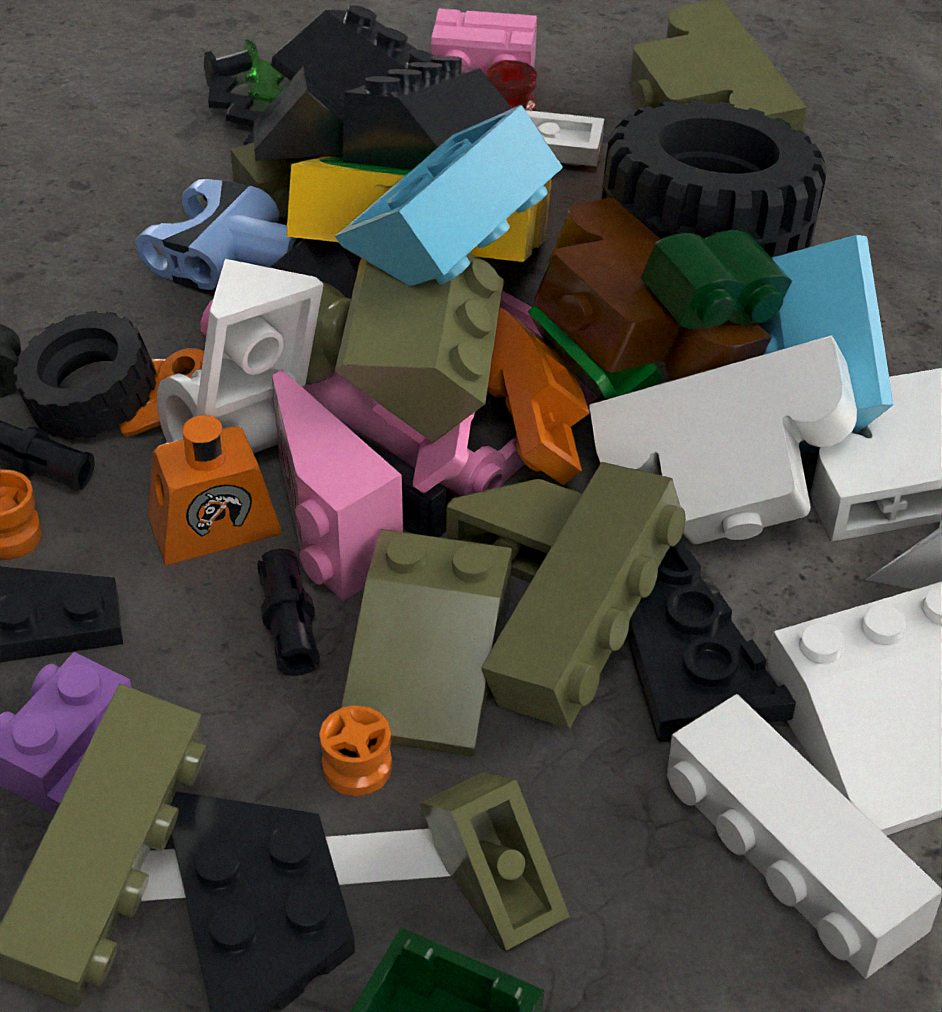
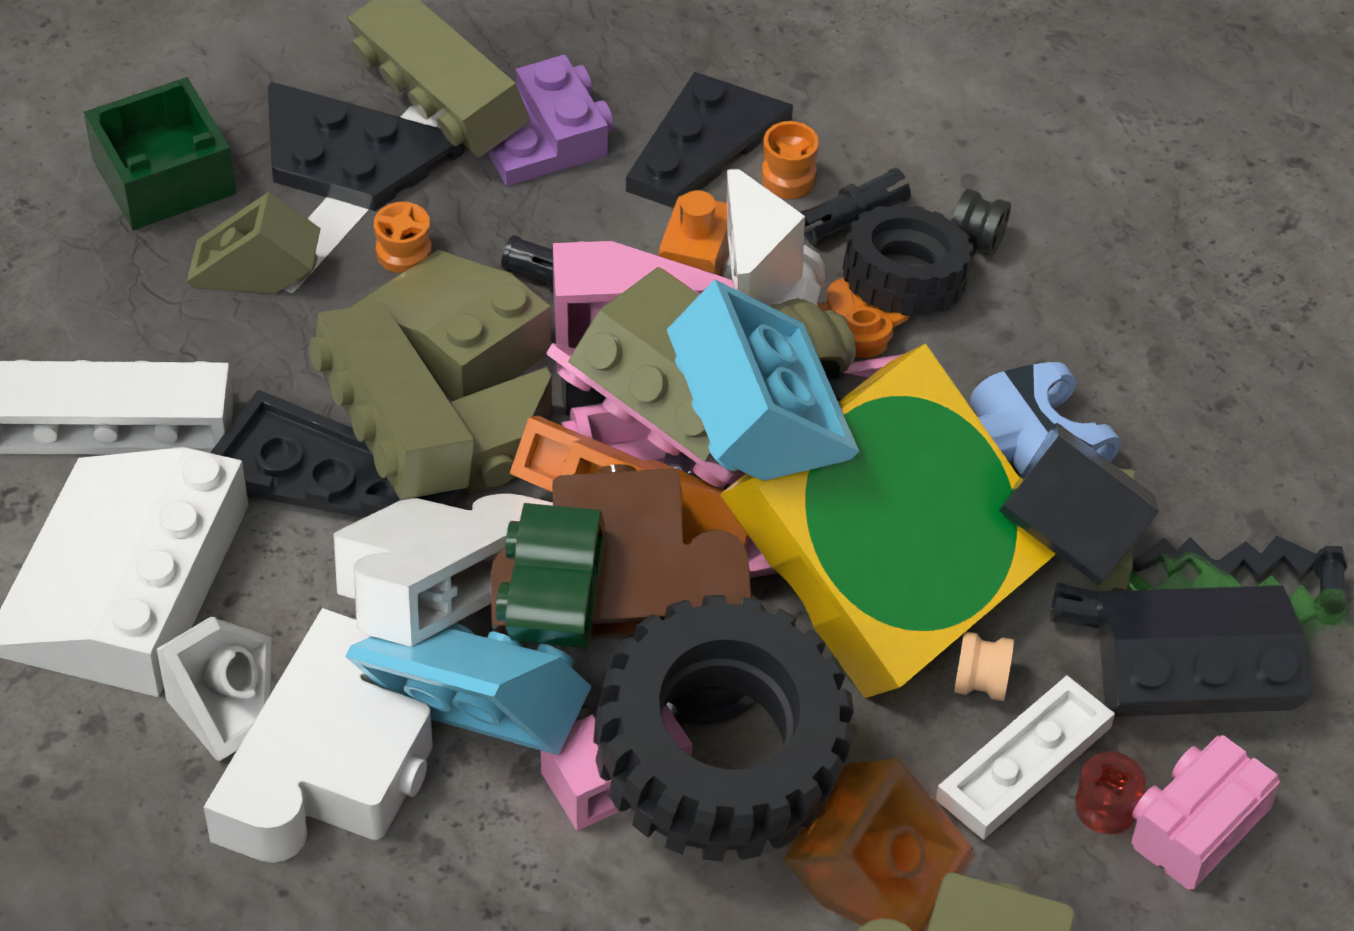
camera: 125 degrees right, 5 degrees up
(415, 111) = (996, 573): black slope -> none

